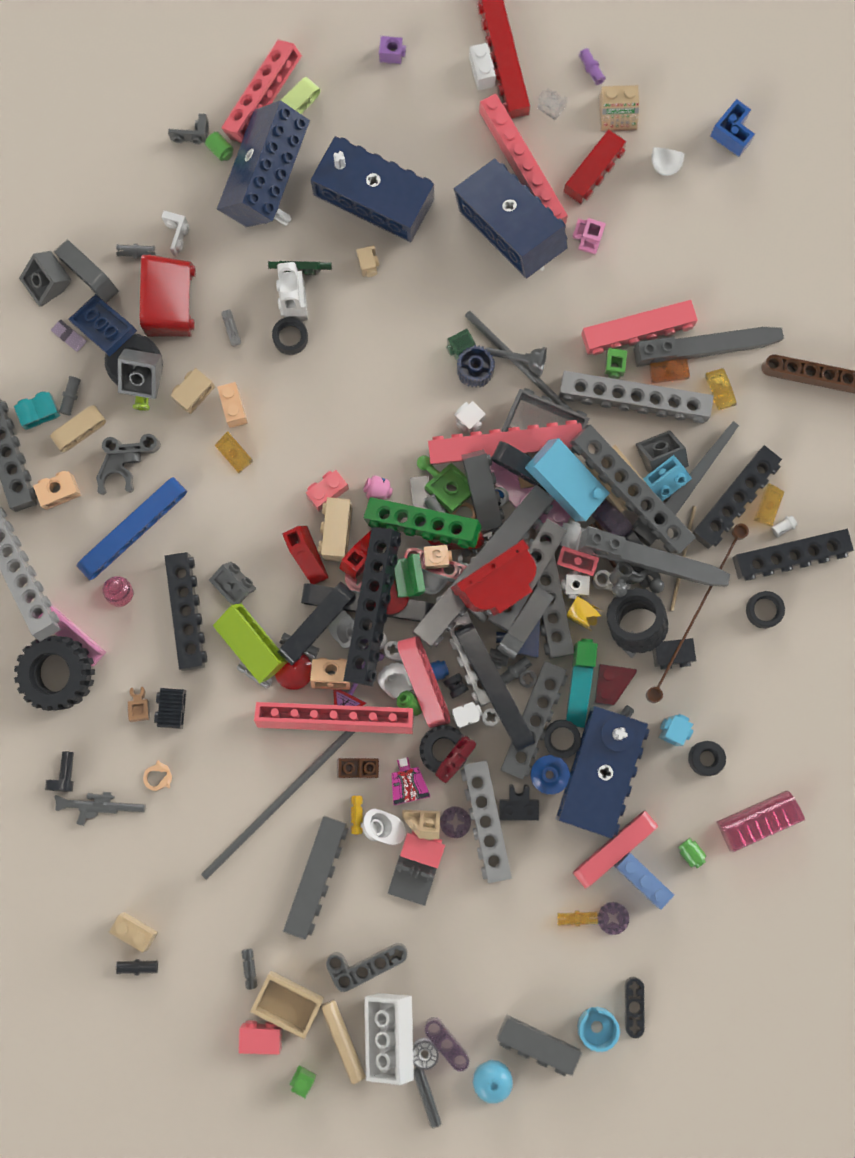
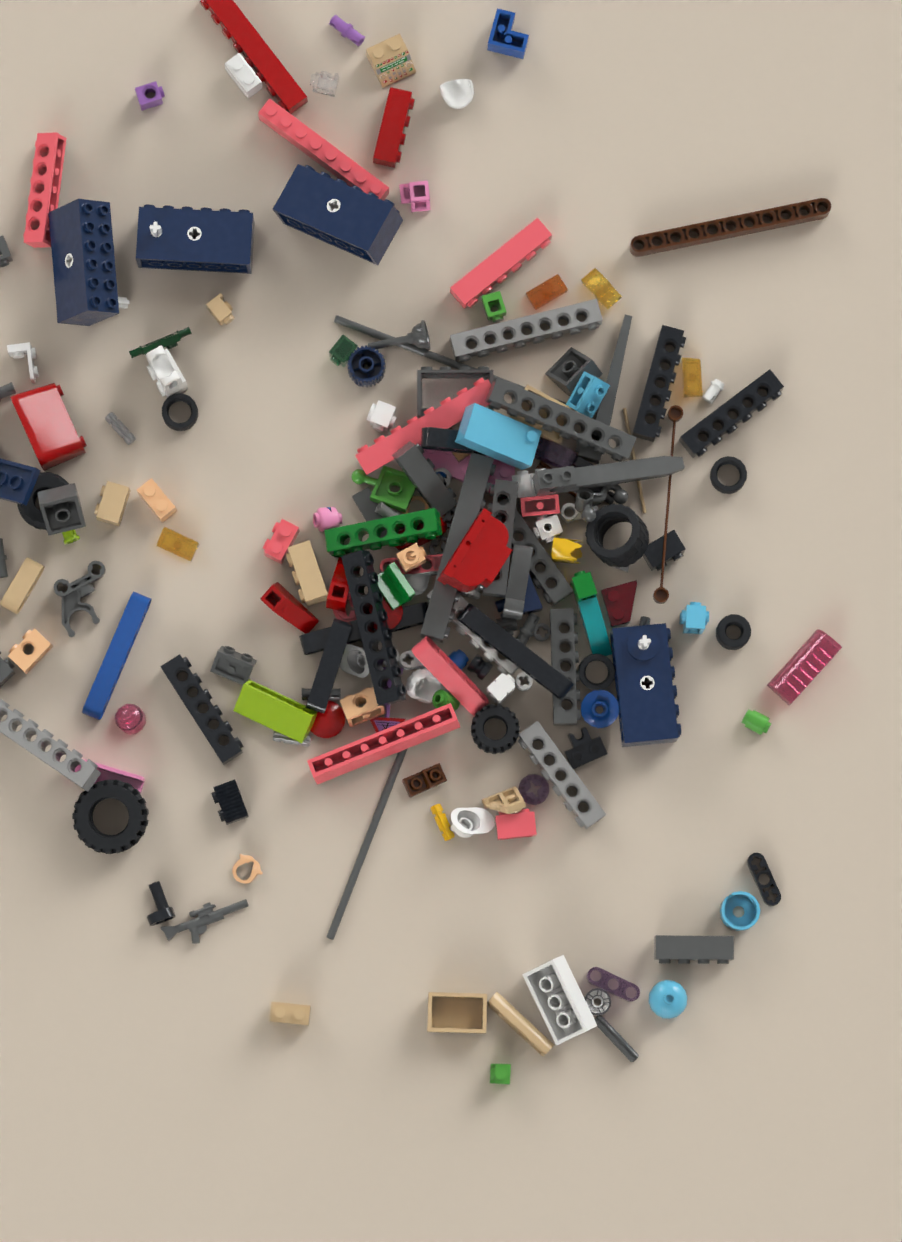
camera: 30 degrees left, 0 degrees up
(136, 967) = (307, 1043): black pin -> none
(138, 708) = (200, 814): medium nougat plate -> none
(219, 146) = (29, 260): bright green brick -> none
(249, 969) = (408, 1000): dark grey axle -> none
(260, 1038) = (446, 1052): coral brick -> none
(302, 95) = (82, 180): yellowish green beam -> none
(314, 878) = (430, 892): dark grey brick -> none
(368, 963) = (512, 946): dark grey beam -> none
(408, 783) = (476, 773): torso -> none
(412, 880) = (518, 857): dark grey hinge -> none
(455, 759) = (509, 730): dark red hinge -> none
(577, 918) = (680, 824): clear yellow pin -> none
(615, 849) = (686, 749): coral beam -> none
(622, 917) = (719, 806): clear purple gear -> none
(644, 881) = (723, 764): medium blue brick -> none
(705, 345) = (568, 254): dark grey piece -> none

